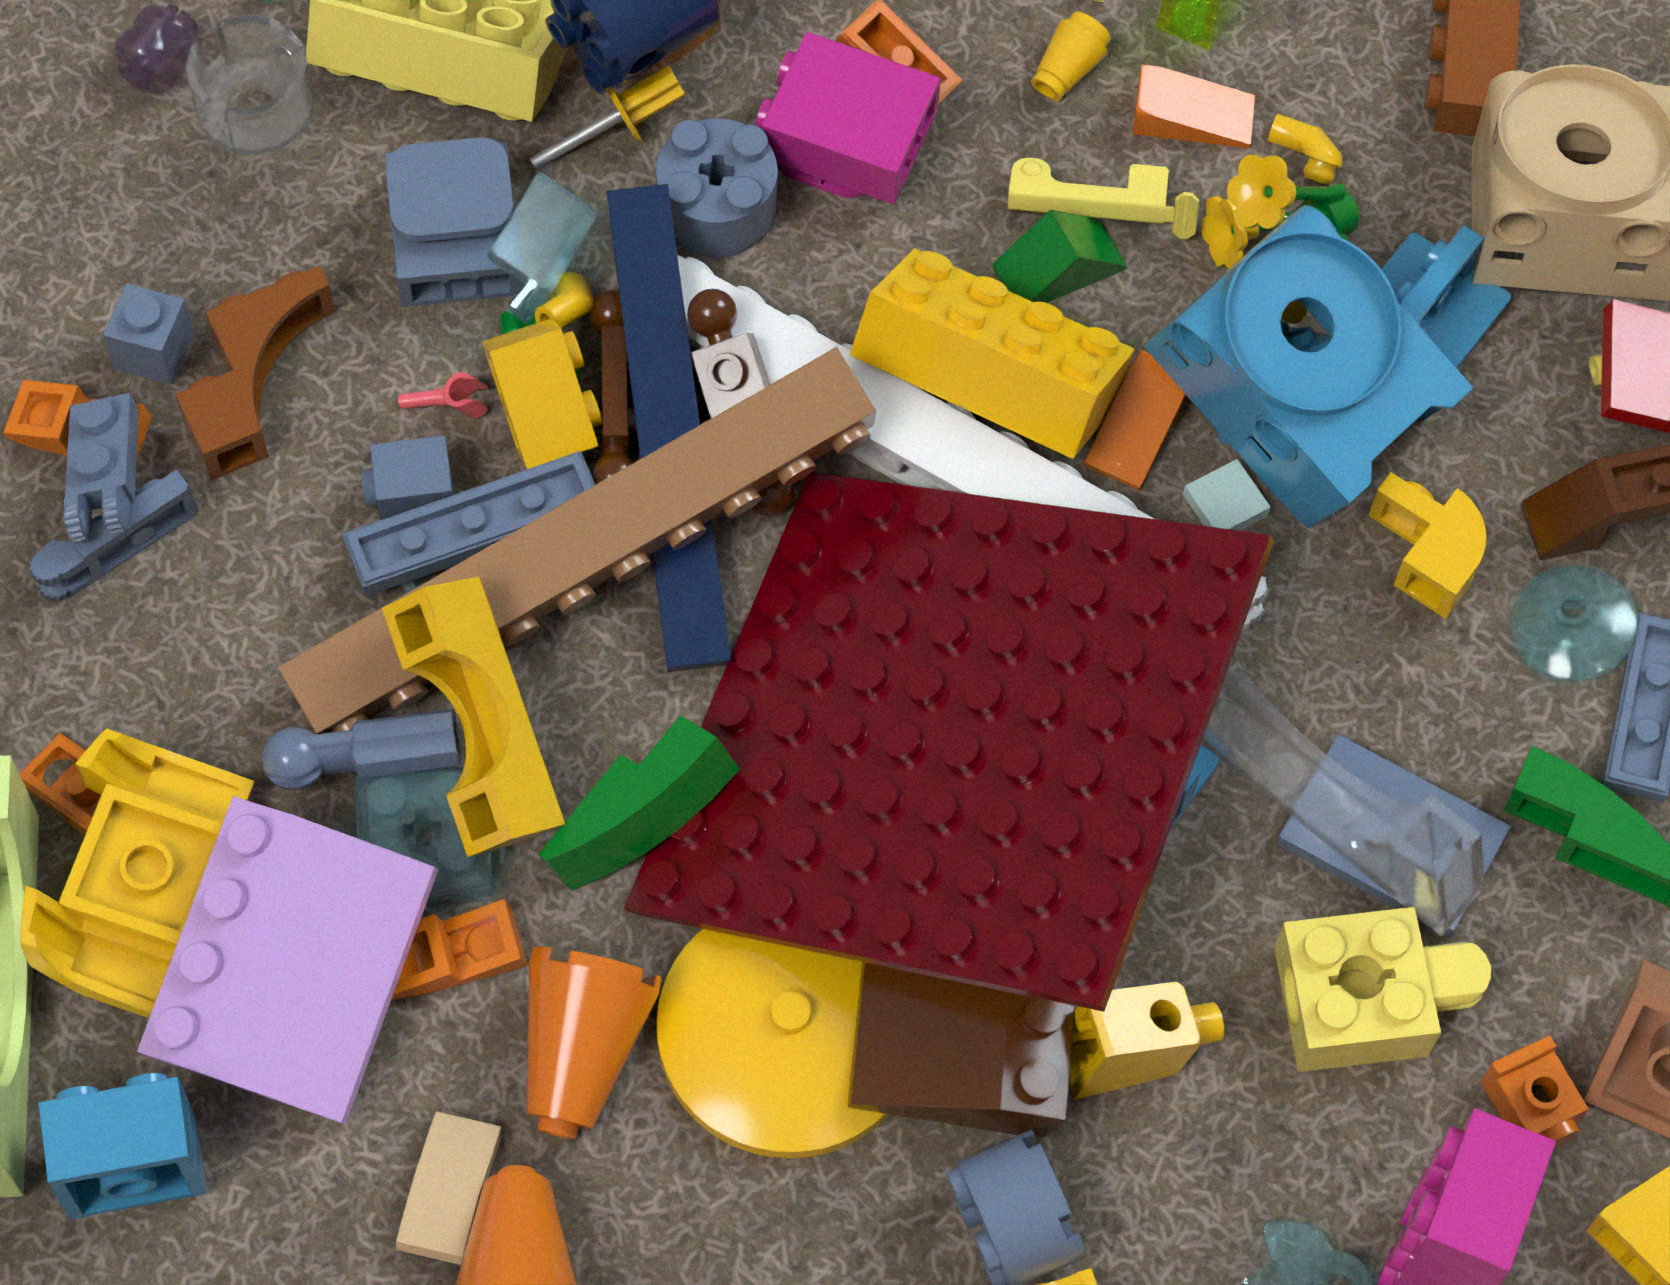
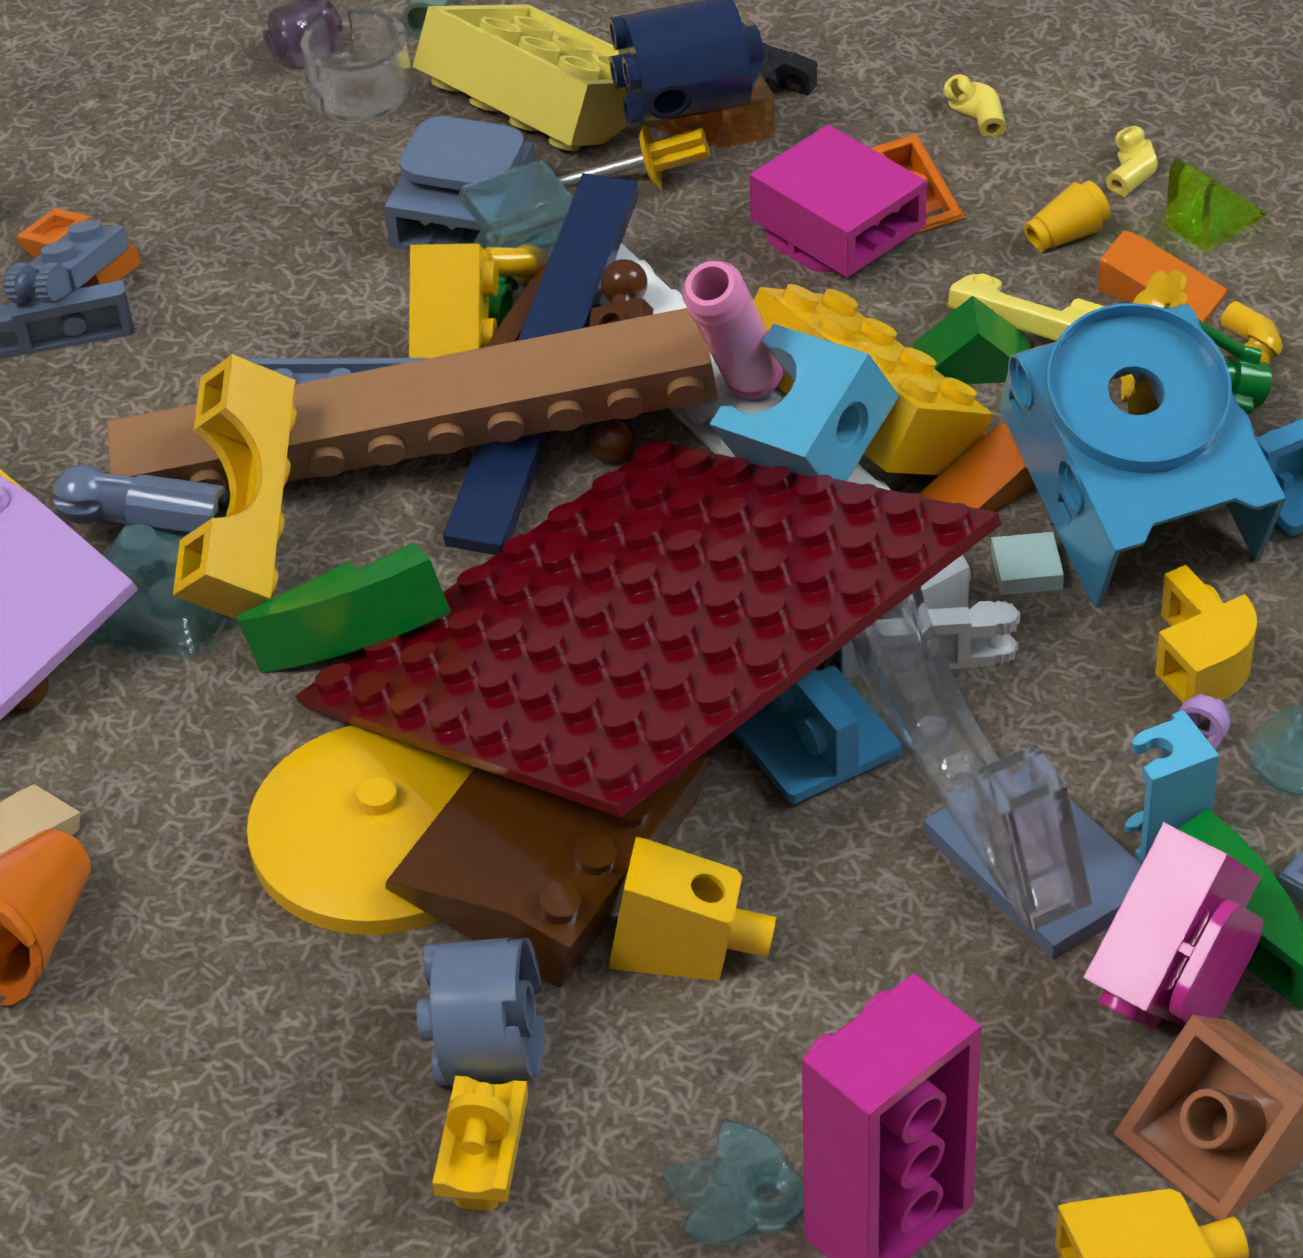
camera: 30 degrees right, 20 degrees down
(148, 334) = (168, 199): sand blue brick -> none
(250, 337) = (248, 222): dark orange arch -> none
(407, 475) = (312, 334): sand blue brick -> none
(454, 394) = (392, 306): coral hand -> none
(461, 950) = (113, 677): orange slope -> none
(580, 1035) = (188, 754): orange cone -> none
(719, 185) = (695, 217): sand blue brick -> none
(892, 373) = (731, 328): none -> bright pink axle
(1019, 435) = (825, 417): none -> medium azure piece
(1385, 1007) = (971, 953): light yellow brick -> none
(1470, 622) = (1214, 710): none -> lavender hinge
(1497, 734) = (1177, 782): none -> medium azure hinge
(1510, 1089) = (1058, 1100): orange brick -> none
(1587, 907) = (1178, 934): none -> brick

